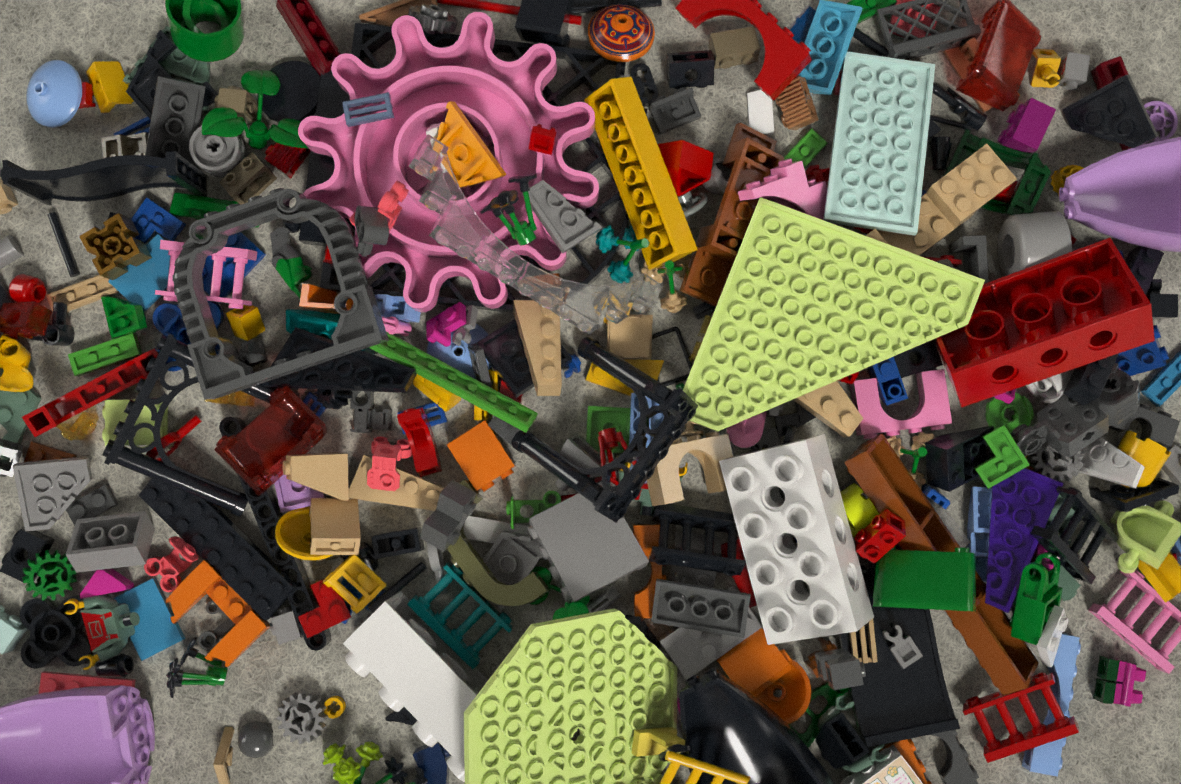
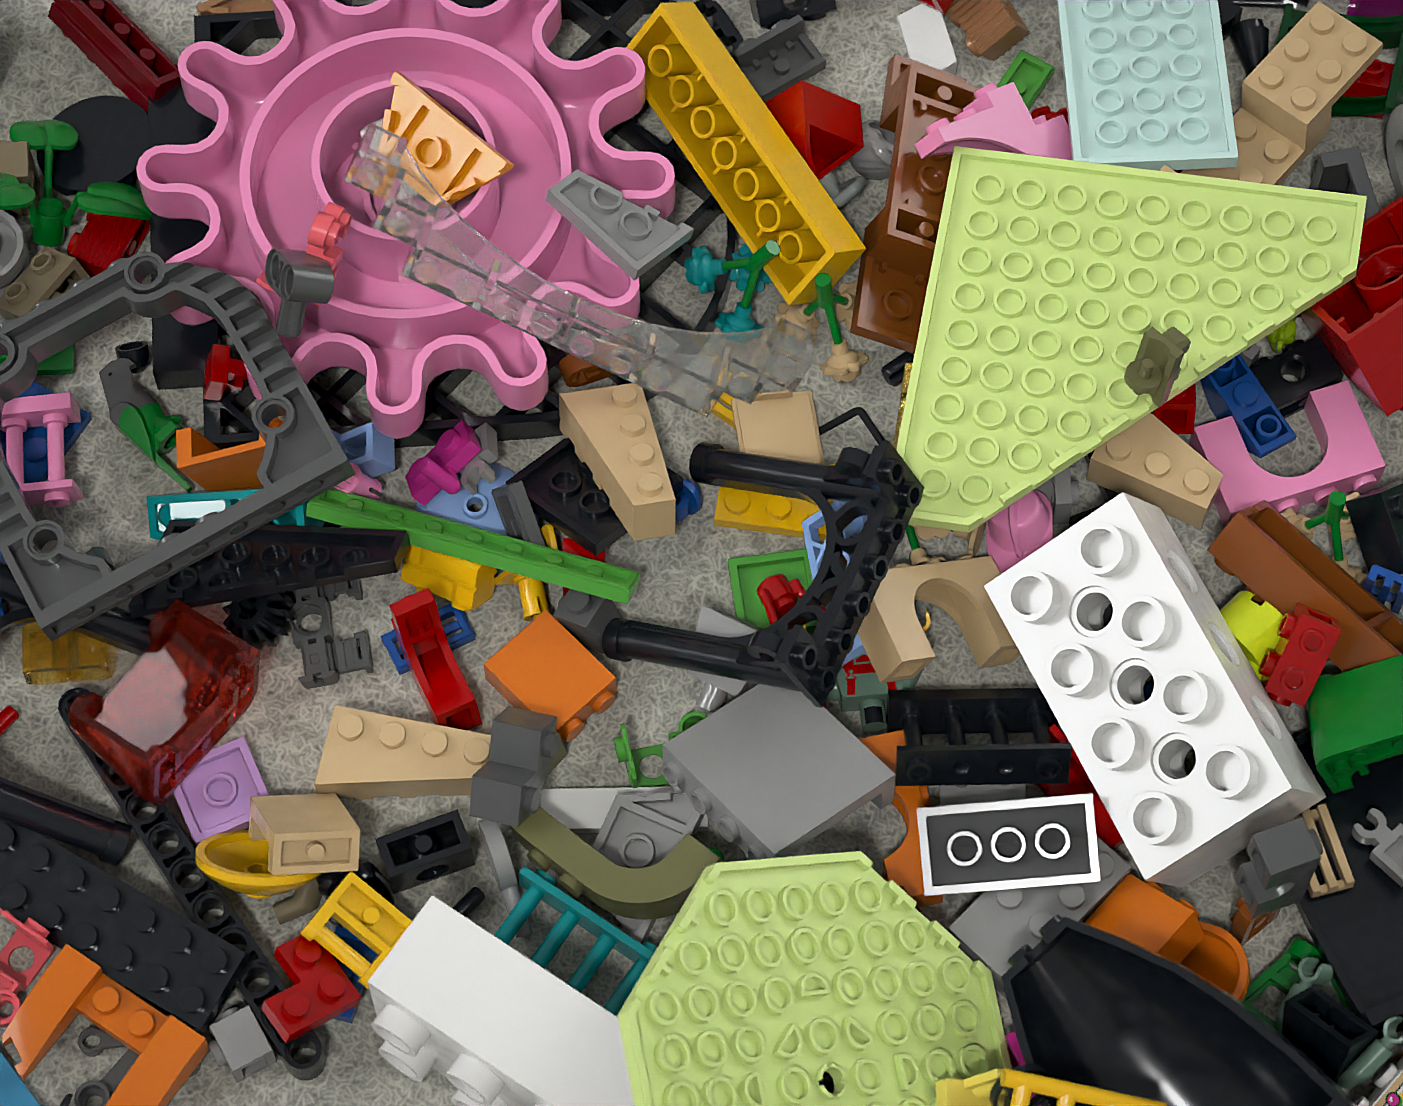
camera: 10 degrees left, 20 degrees down
(246, 322) = (82, 524): yellow panel -> none
(320, 472) = (264, 740): tan slope -> none
(368, 118) = (257, 122): sand blue tile -> none
(383, 471) = (380, 722): coral piece -> none
(521, 230) = (559, 254): plant -> none
(542, 139) = (563, 109): red tile -> none
(842, 366) = (1157, 364): none -> olive hips

